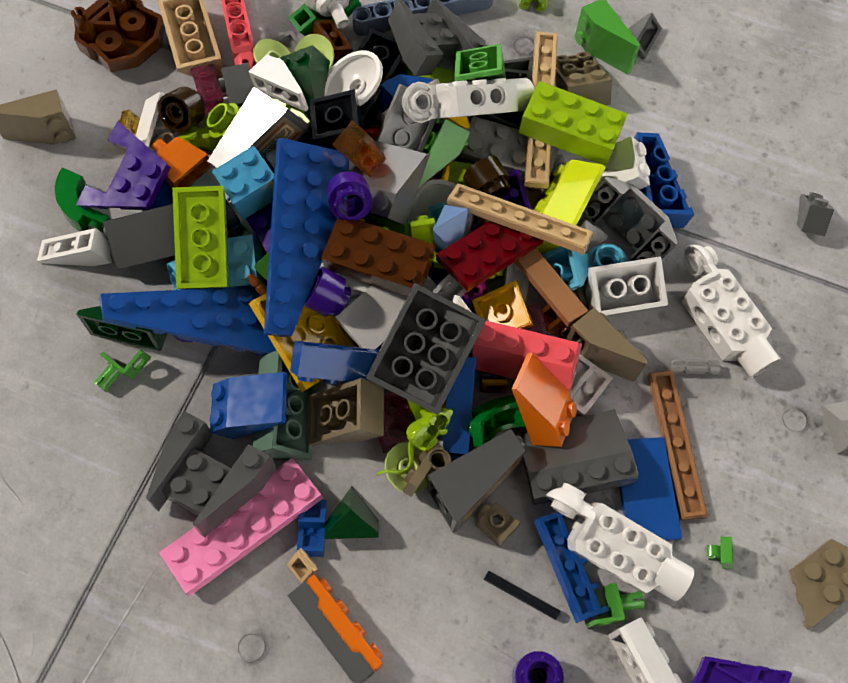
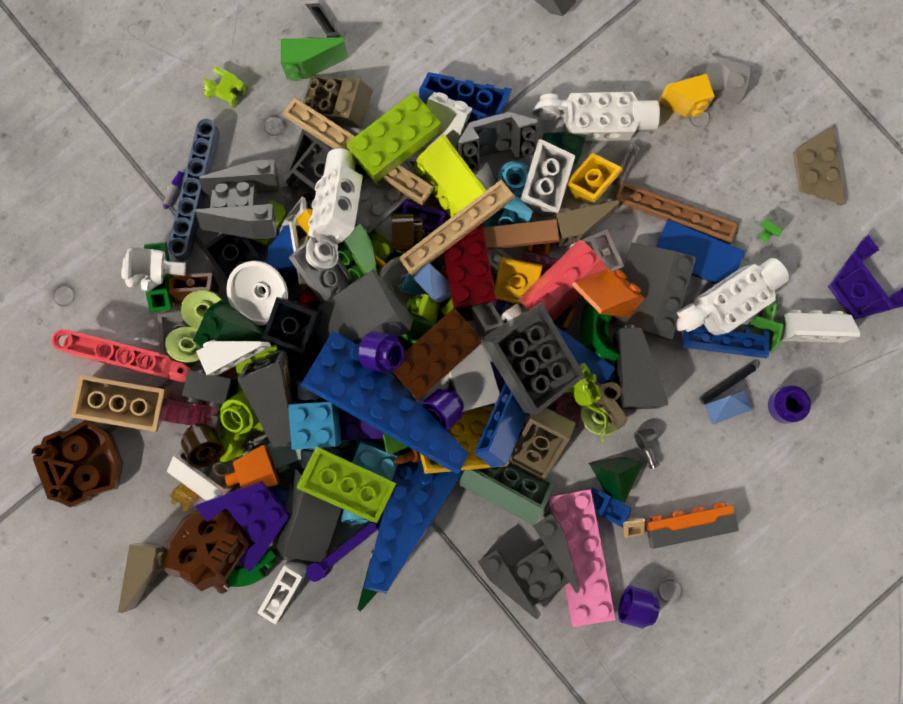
camera: 60 degrees left, 15 degrees up
(78, 157) = (205, 551): none -> reddish brown brick
(114, 270) = (320, 570): none -> dark purple piece
(114, 369) = (409, 600): bright green bracket -> none
(211, 614) = (638, 607): none -> dark purple piece
(248, 404) = (498, 510): blue slope -> none
(359, 148) = (336, 321): clear orange slope -> none
(408, 532) = (645, 440): none -> dark grey bar
(480, 64) = (301, 181): bright green slope -> none
(497, 532) = (680, 371): dark tan brick -> none
(497, 609) = (728, 407): none -> medium blue slope
(656, 334) = (592, 178): none -> yellow slope
(678, 299) = (566, 141): none -> clear green slope
(807, 387) = (688, 96): none -> yellow slope

